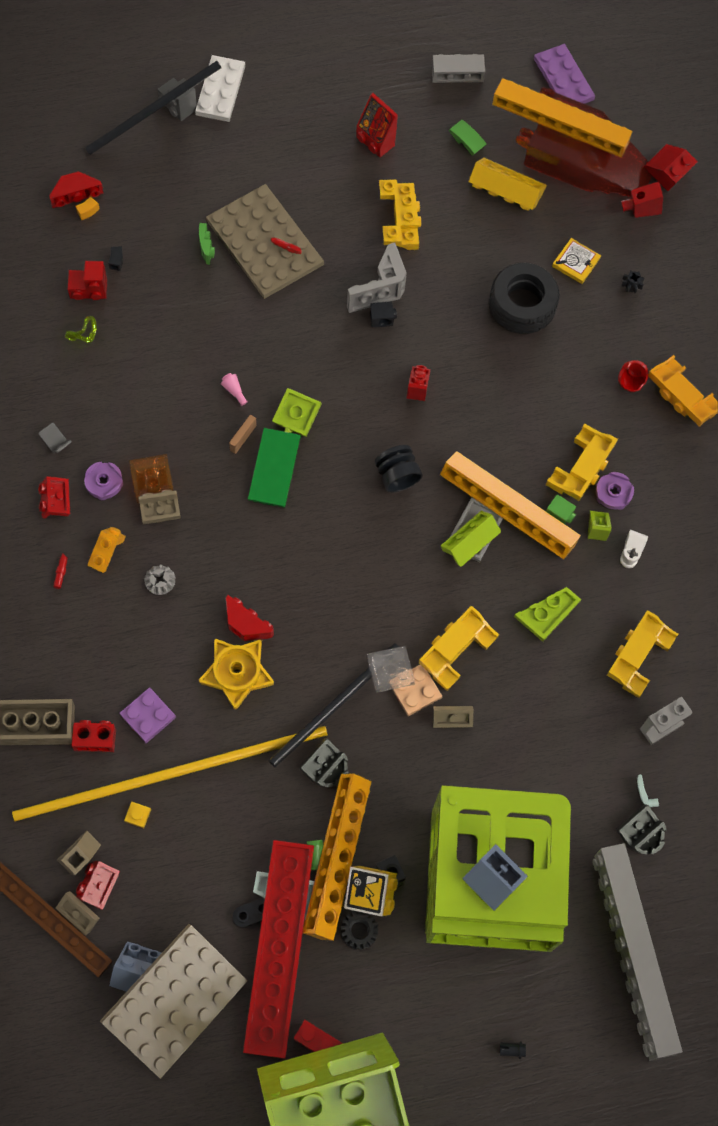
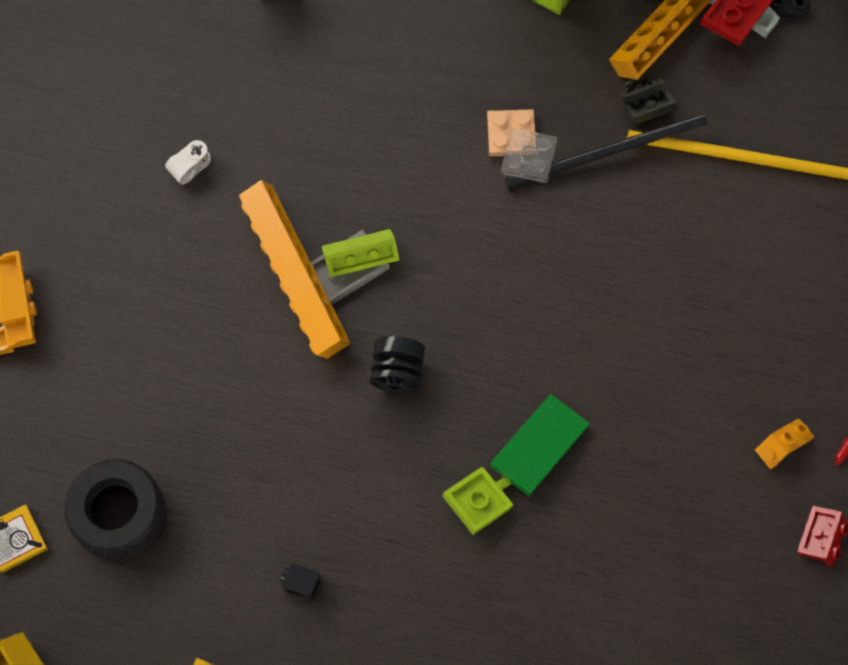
camera: 145 degrees left, 0 degrees up
(54, 438) = (793, 610): dark grey bracket -> none
(104, 470) = (760, 517): medium lavender plate -> none
(147, 715) = (813, 237): medium lavender plate -> none
(151, 475) = (694, 504): clear orange slope -> none
(159, 506) = (700, 460): dark tan bracket -> none
(161, 587) = (736, 389): light grey gear -> none
(231, 383) = (538, 581): bright pink cone -> none
(232, 657) = (680, 239): yellow plate -> none
(242, 434) = (557, 505): medium nougat tile -> none
(245, 622) = (661, 280): red slope -> none
(318, 846) = (696, 31): bright green cone -> none
(387, 288) = (259, 631): light grey bracket -> none
(418, 383) = (310, 463): red slope -> none
(452, 716) = (480, 82): dark tan plate -> none
(454, 641) = (445, 151): yellow bracket -> none
(549, 613) = (323, 140): lime wing -> none
(562, 510) = (241, 238): bright green brick -> none
(585, 471) = (178, 270): yellow bracket -> none
(599, 525) = (208, 203): lime slope -> none
(610, 500) = (165, 246): medium lavender plate -> none
(631, 656) = (258, 57): yellow bracket -> none
(633, 375) = (53, 349): red hair -> none

